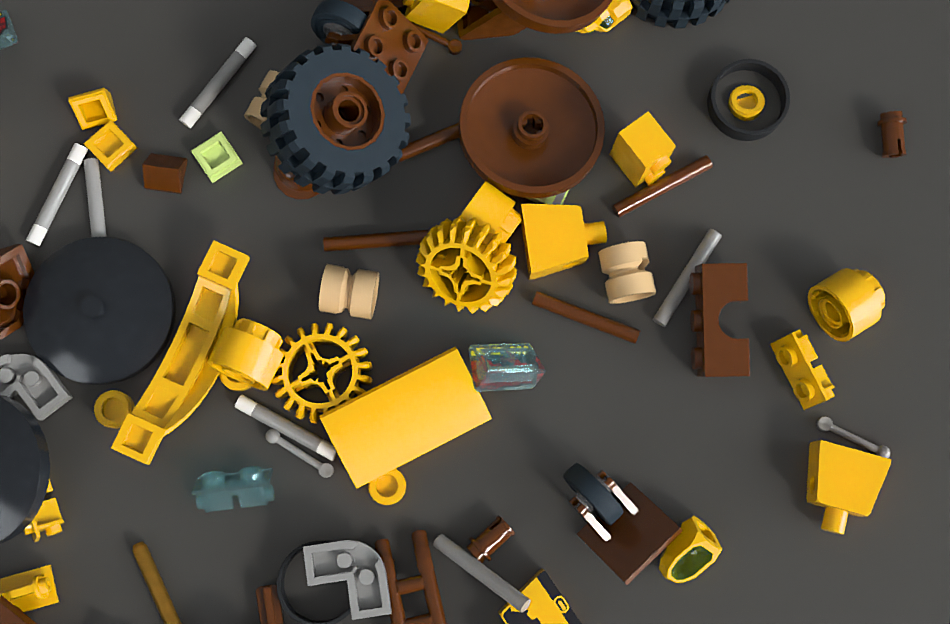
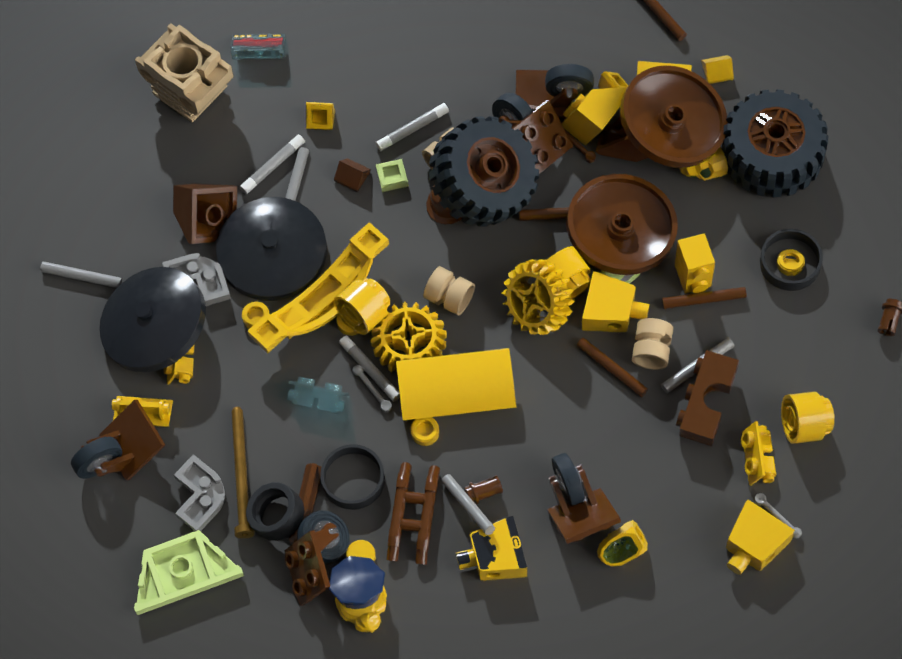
camera: 30 degrees right, 15 degrees down
(110, 145) = (321, 144): yellow tile -> none
(356, 564) = (383, 467): light grey plate -> none
(374, 240) = (476, 265): reddish brown bar -> none
(504, 367) = (539, 376): clear light blue slope -> none

